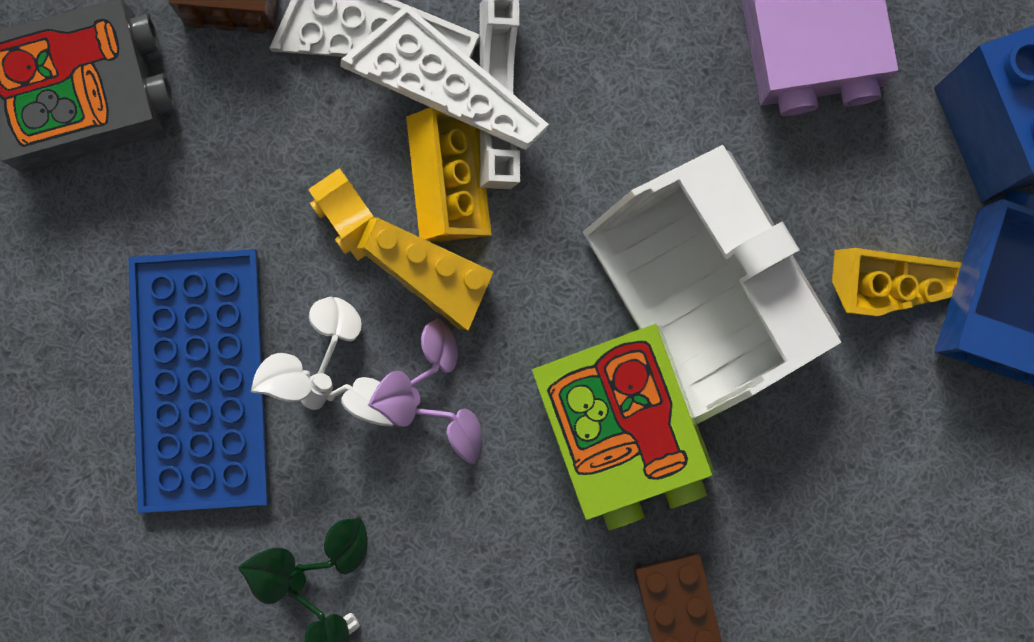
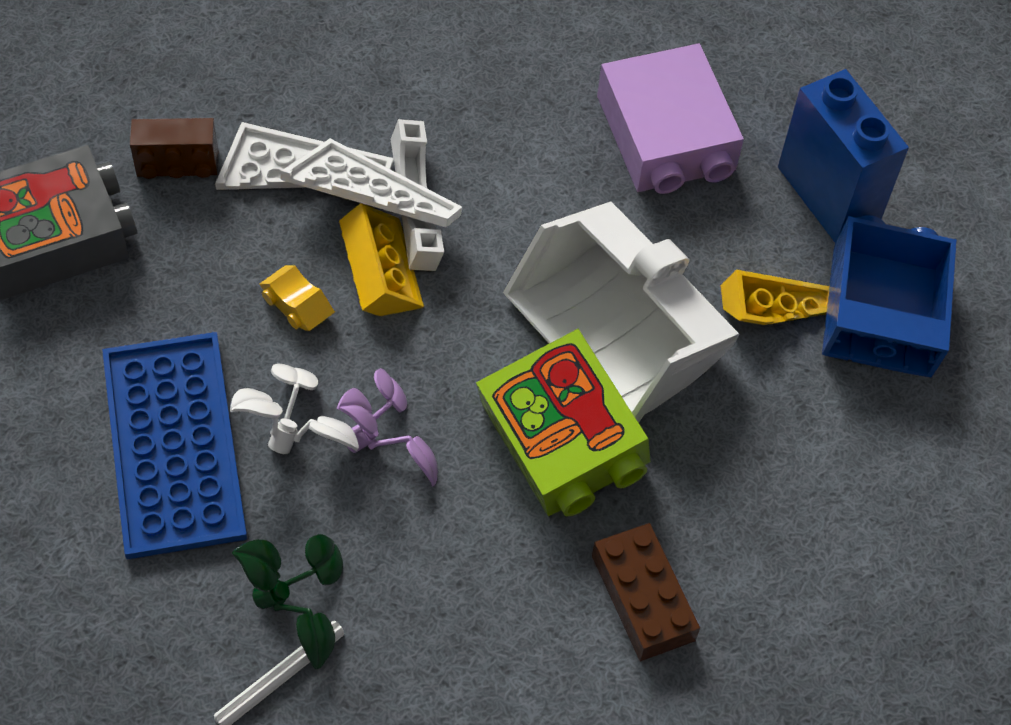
camera: 15 degrees left, 25 degrees down
(431, 272) = (372, 325): yellow wedge -> none

